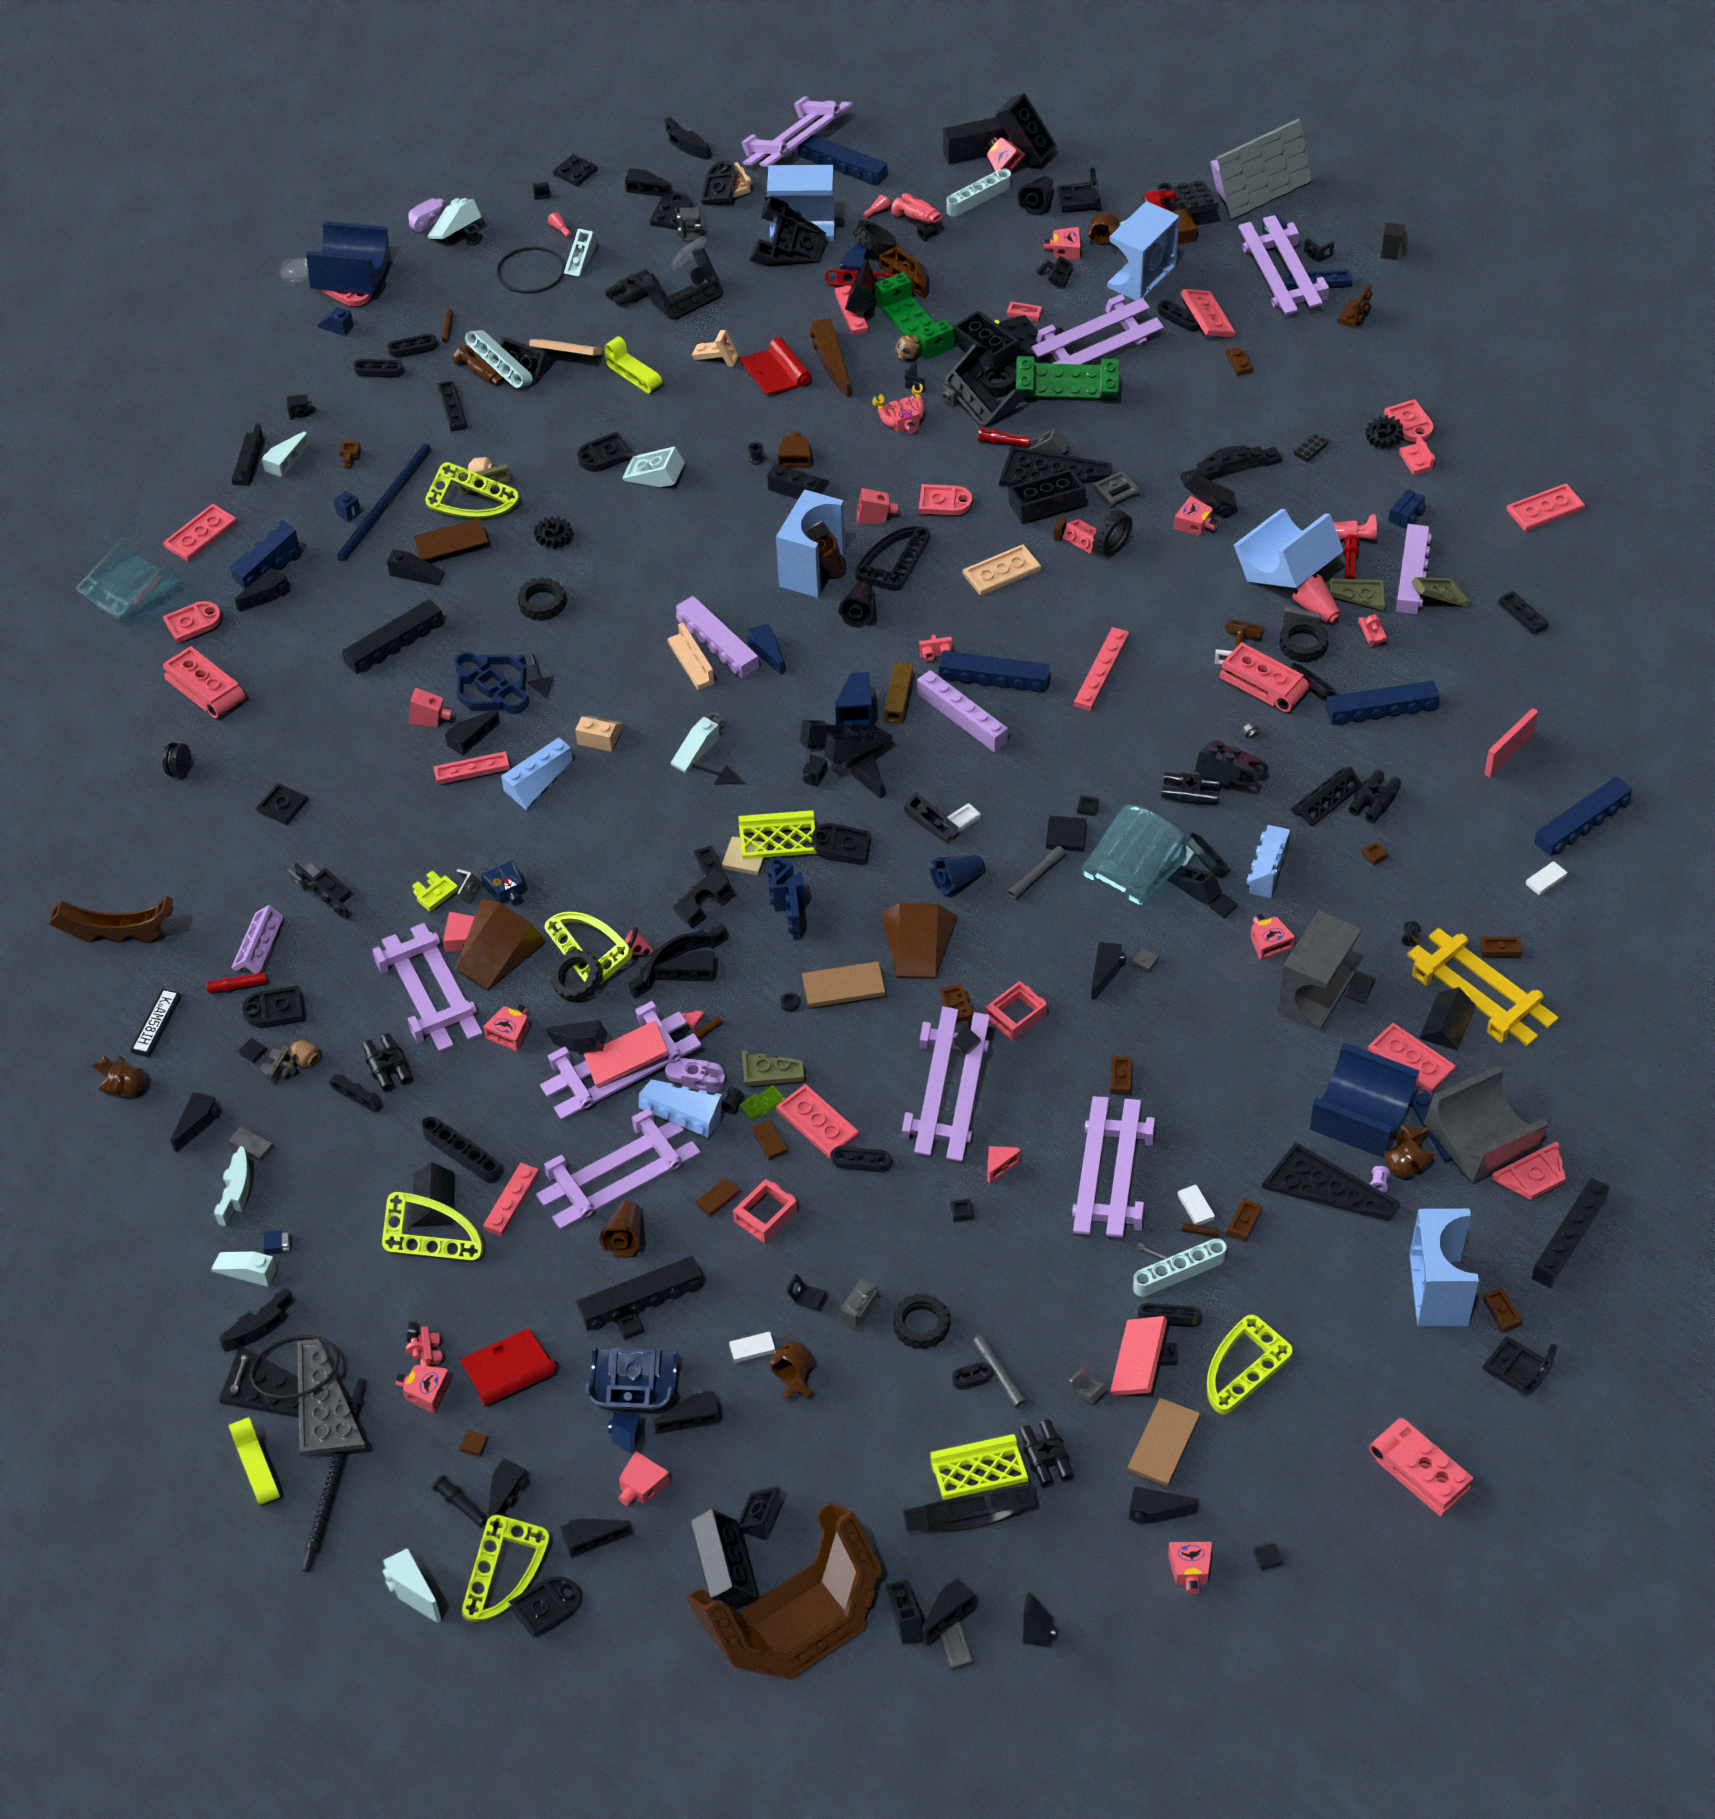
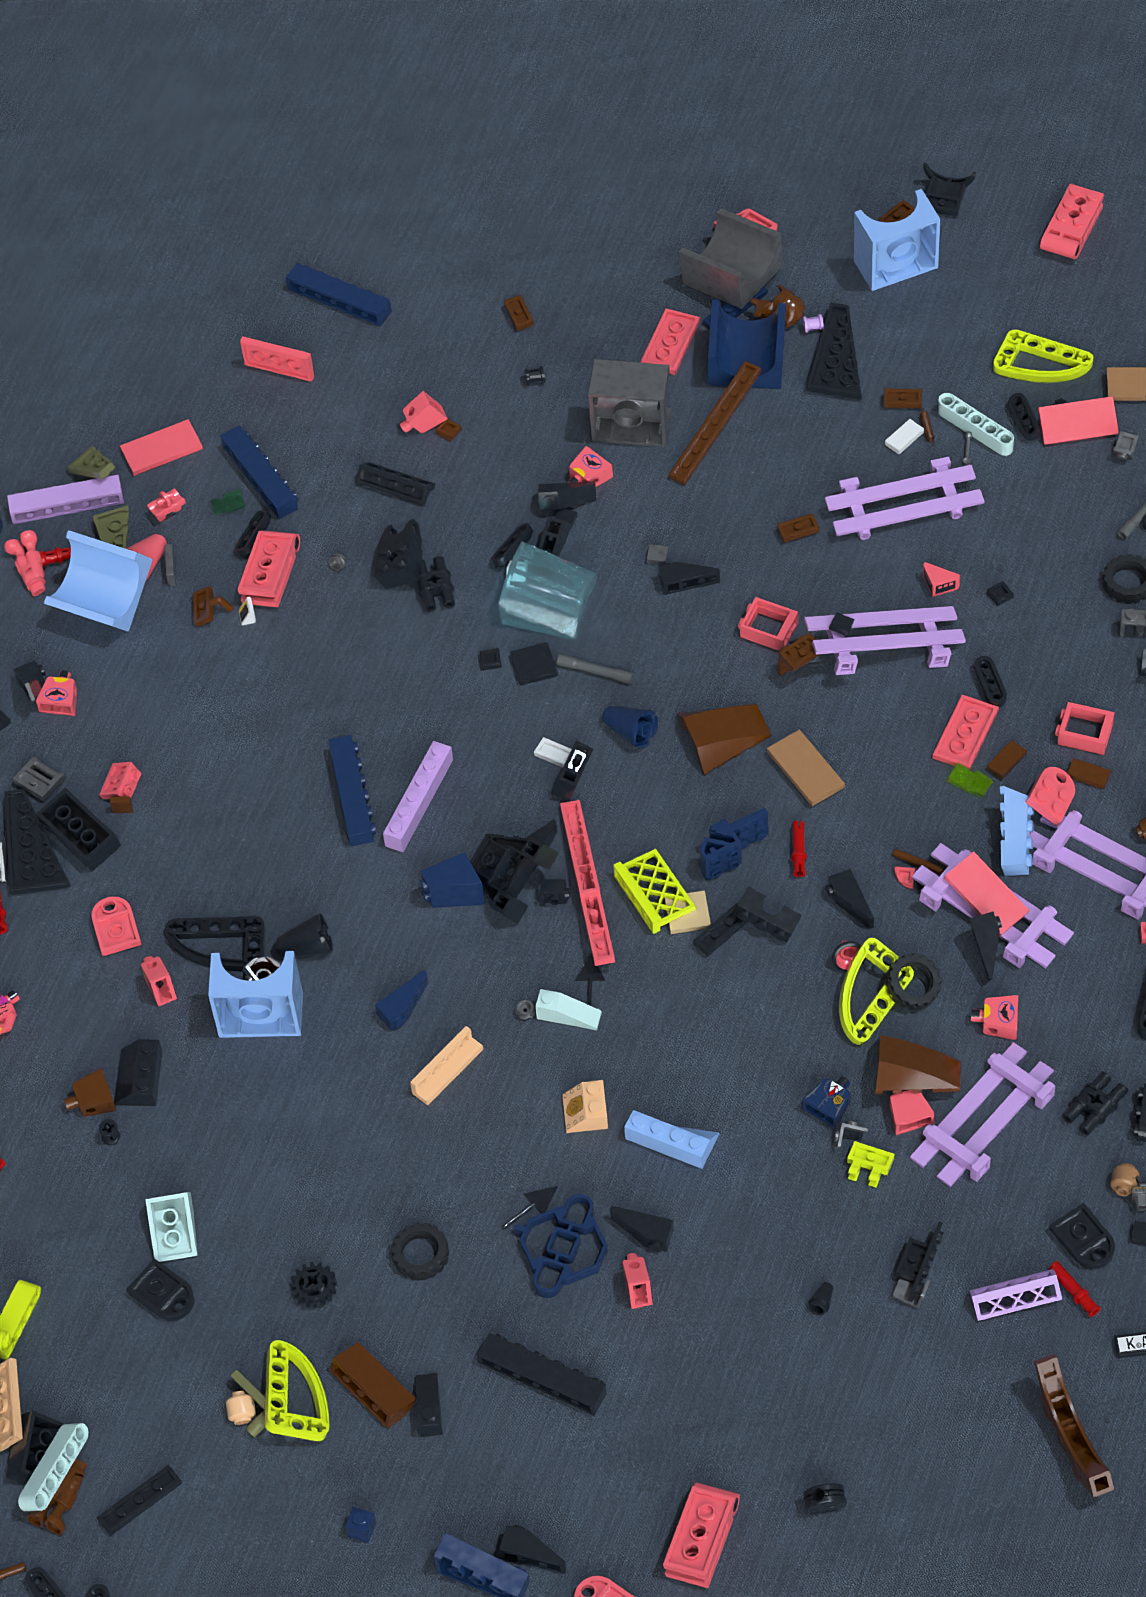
camera: 110 degrees left, 5 degrees up
(282, 804) = (824, 1371): black tile -> none
(338, 819) = (821, 1299): none -> black cone
(349, 450) = (262, 1573): reddish brown plate -> none
(383, 502) = (331, 1495): dark blue axle -> none
(471, 768) = (692, 1206): coral plate -> none
(672, 949) = (845, 920): black piece -> none
(696, 1074) = (972, 835): lavender piece -> none
(705, 1148) = (1051, 796): none -> coral plate
(717, 637) = (406, 1054): lavender brick -> none
(731, 1100) = (989, 798): black bush -> none
(754, 947) = (798, 856): none -> red pin
(767, 1070) = (932, 787): olive wing -> none
(790, 1002) = (844, 805): black tile -> none
(810, 794) = (587, 883): none -> coral slope
(841, 842) = (637, 829): black plate -> none
(898, 693) = (412, 860): pearl gold brick -> none
(931, 648) = (337, 843): coral hips -> none
(1001, 570) = (197, 840): light nougat tile -> none
(1101, 538) = (136, 742): black tyre -> none
(1101, 669) = (304, 707): coral plate -> none
(1246, 903) = (564, 495): none -> black slope
(1269, 861) = (500, 495): light blue wedge -> none
(1281, 1049) = (715, 423): none -> reddish brown tile
(1306, 627) = (199, 541): black tyre -> none
(1357, 675) = (231, 501): none -> clear green plate
(1374, 795) = (380, 445): black pin -> none
(1393, 827) = (423, 414): none -> coral torso
(1448, 648) = (161, 447): none -> coral tile
(1448, 1018) = (617, 329): black slope -> none
(1501, 1020) = (567, 347): yellow fence -> none
(1523, 612) = (91, 402): black plate -> none
(1546, 878) = (421, 304): white tile -> none
(1570, 1232) = (800, 192): black brick -> none

